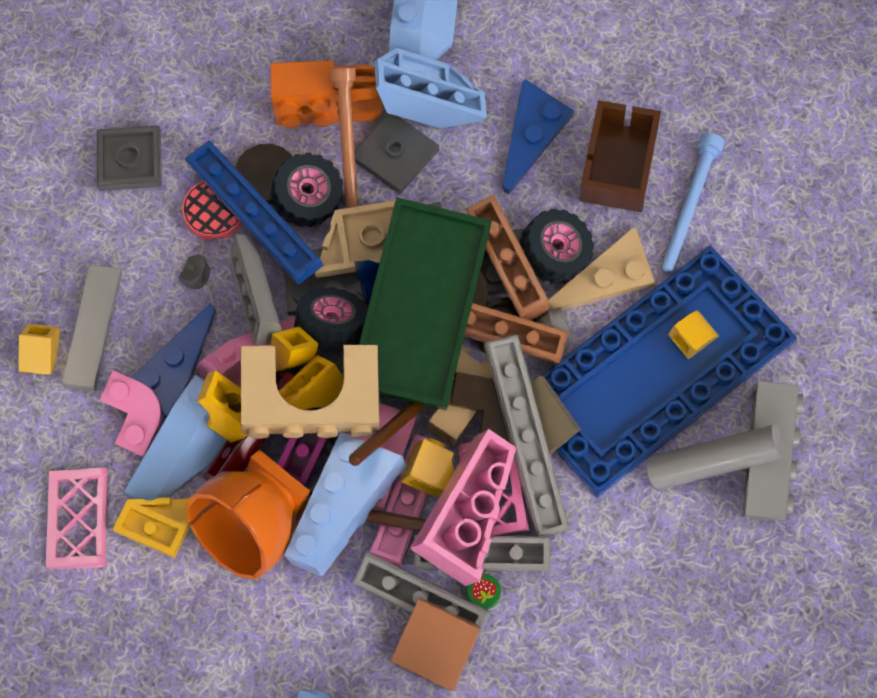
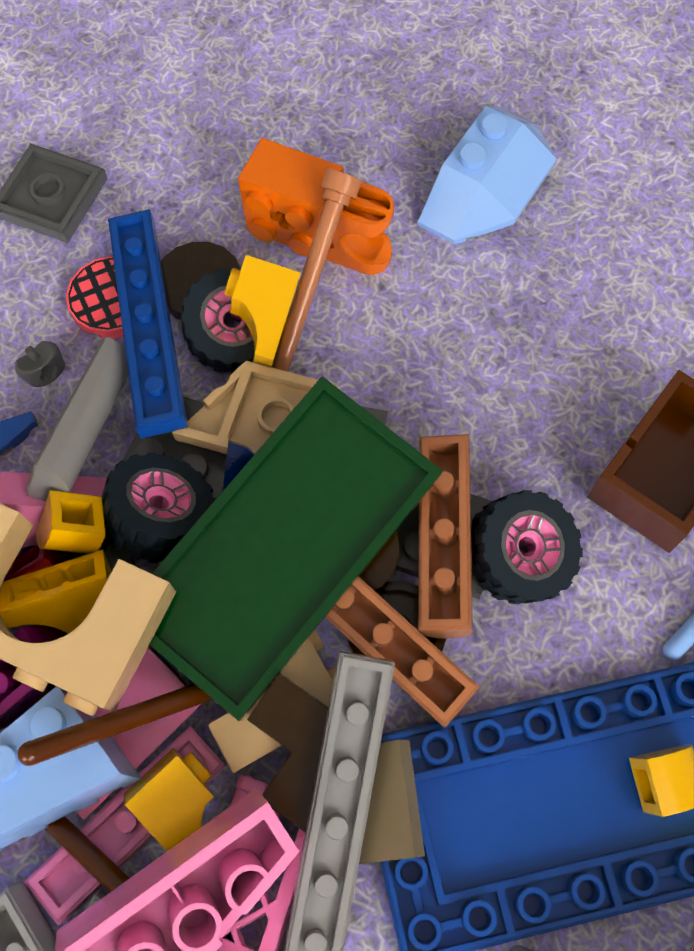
camera: 25 degrees right, 0 degrees up
(328, 168) = (262, 299): none -> yellow arch
(395, 152) = (373, 325): dark grey plate -> none
(427, 90) = (446, 259): light blue wedge -> none
(535, 127) = (573, 371): blue wing -> none
(555, 318) = (470, 655): light grey plate -> none
(614, 273) = (589, 623): tan wing -> none

